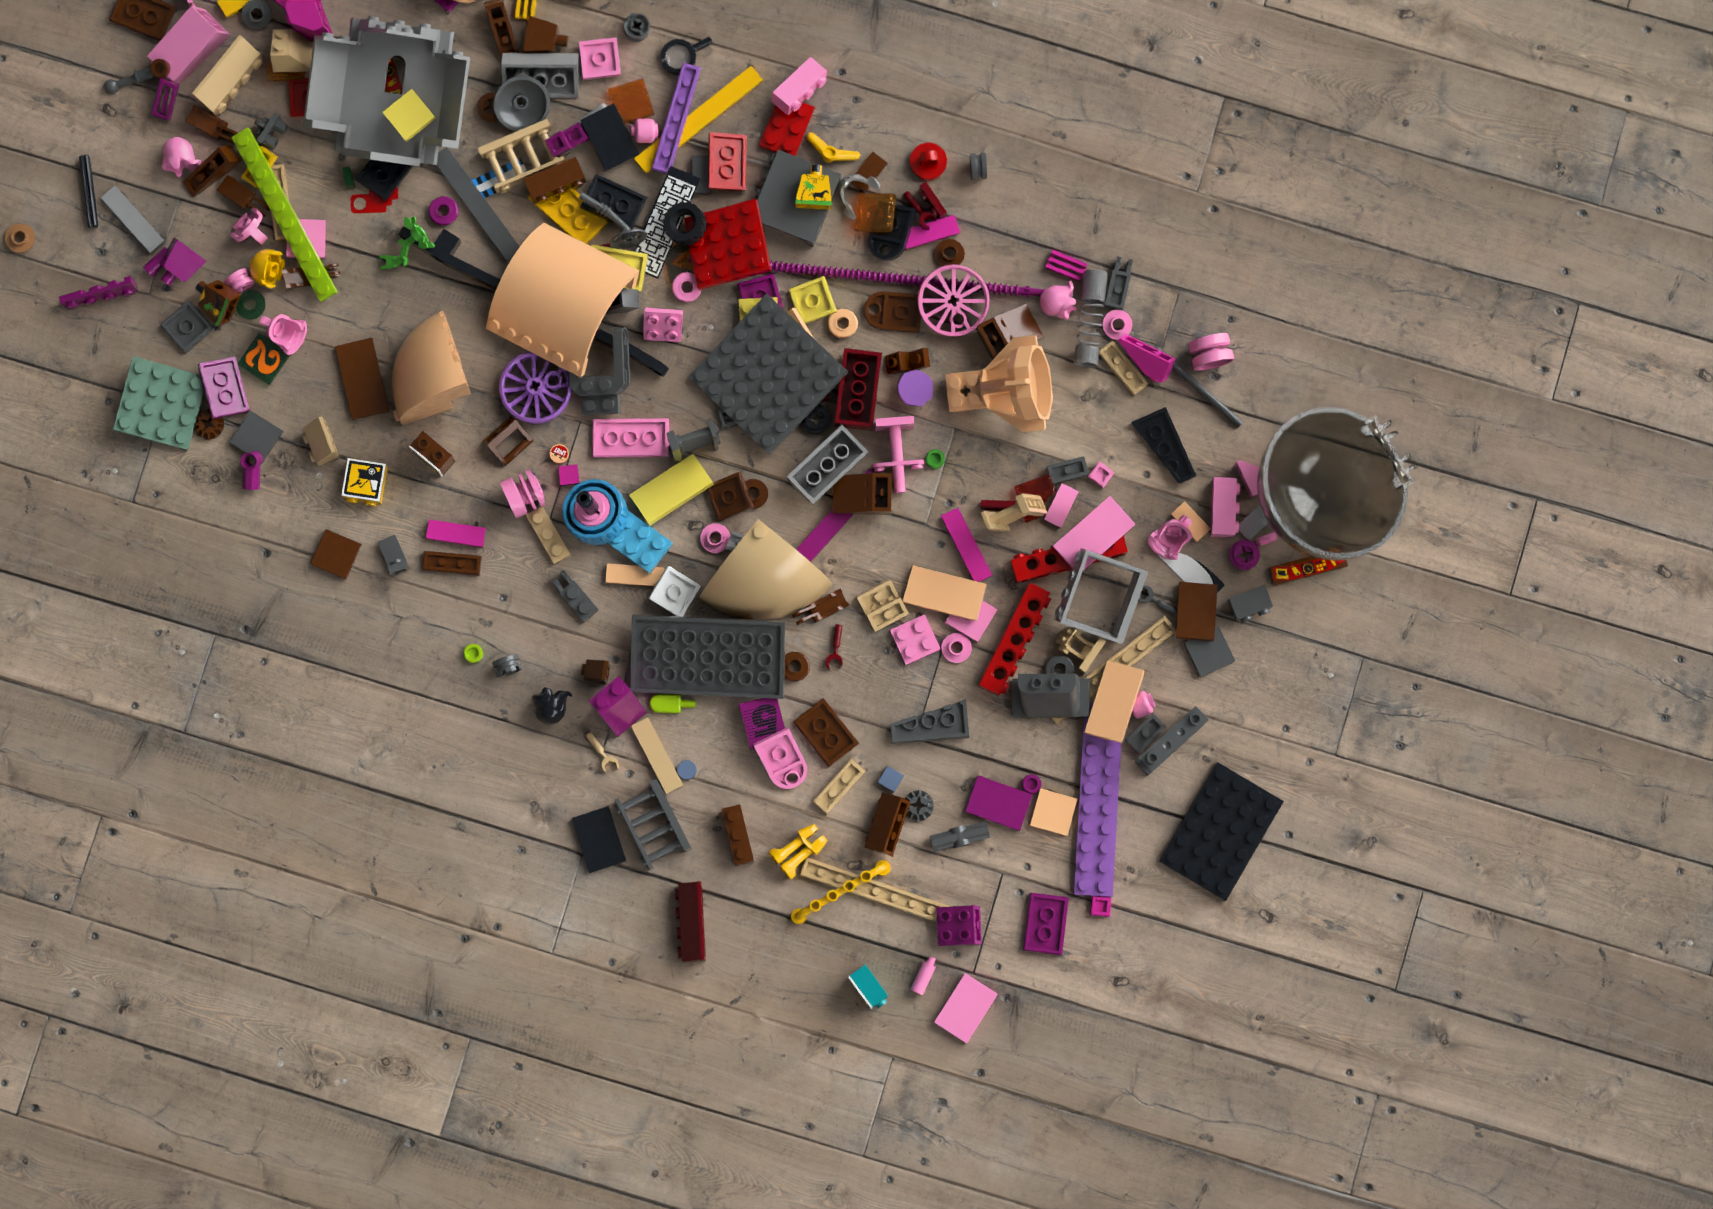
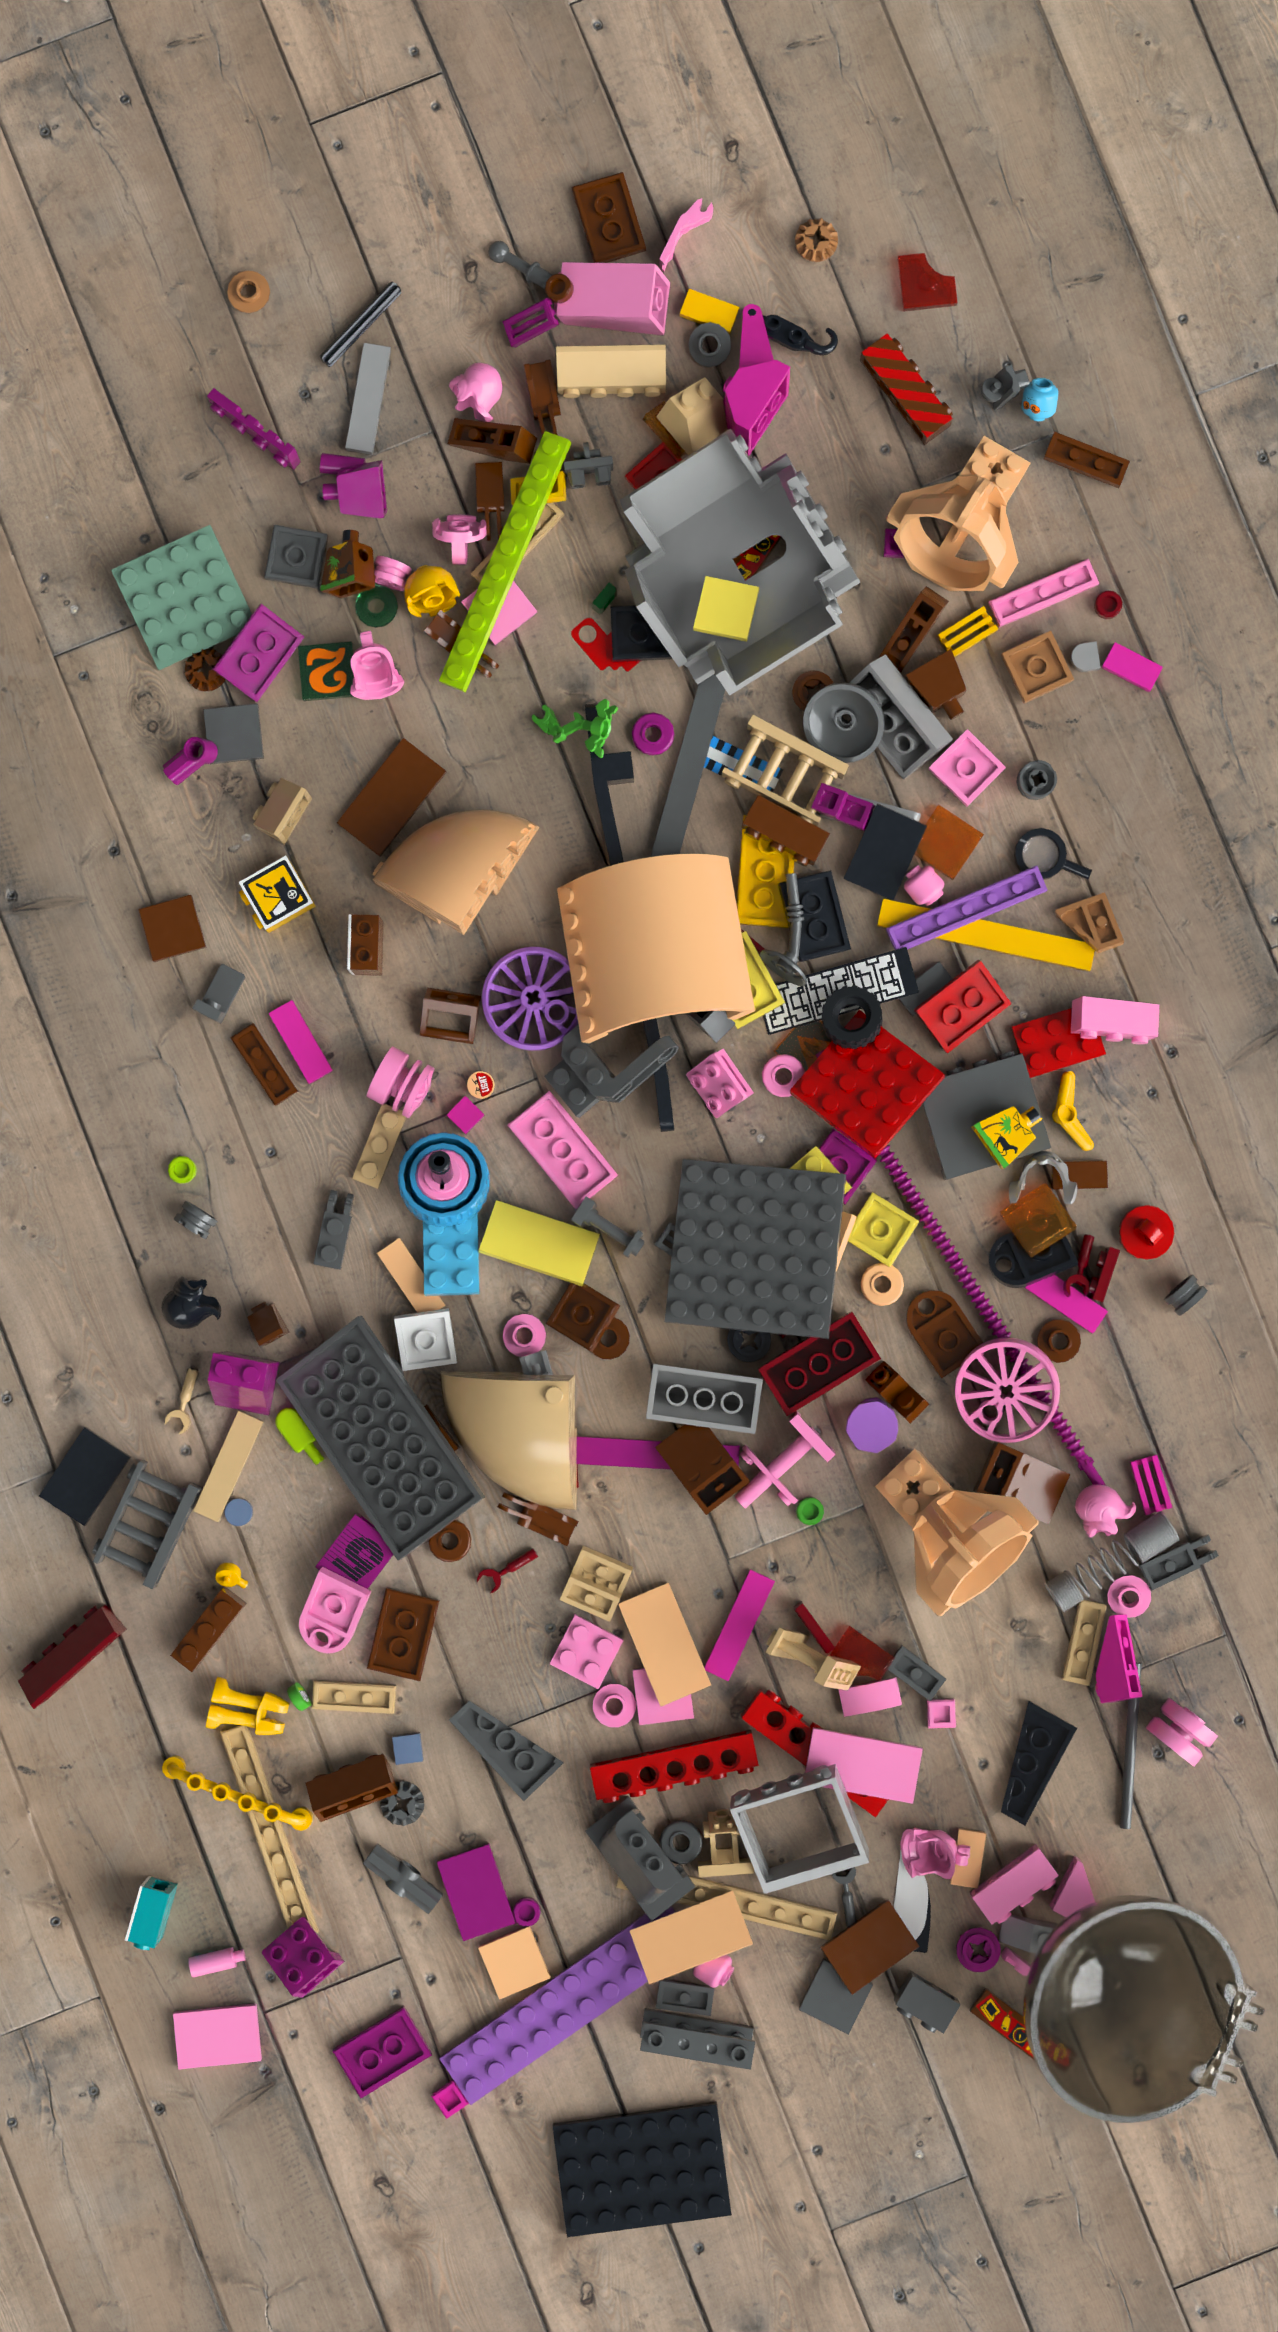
camera: 60 degrees right, 5 degrees up
(717, 801) = (229, 1575): none -> yellow piece
(738, 57) = (1092, 922): none -> medium nougat wing
(813, 815) = (299, 1696): none -> bright green tile

